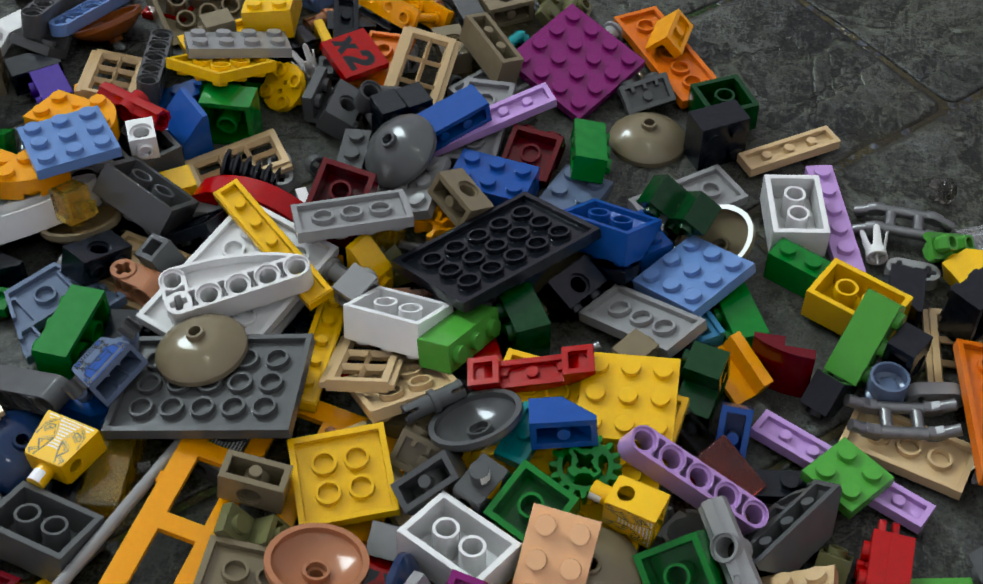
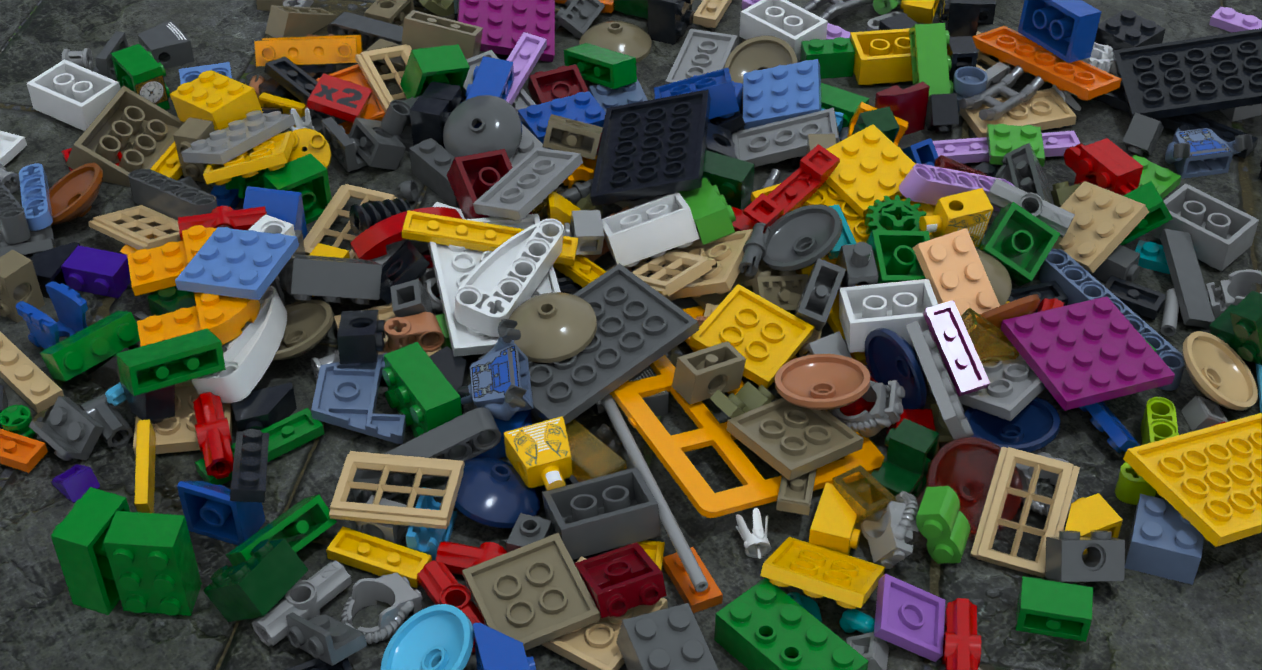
camera: 45 degrees left, 5 degrees down
(73, 203) = (291, 310): clear yellow brick -> none
(436, 72) = (434, 64): none -> green brick
(560, 424) = (863, 199): blue slope -> none
(680, 210) = (737, 52): dark green brick -> none
(876, 252) = (854, 24): white piece -> none

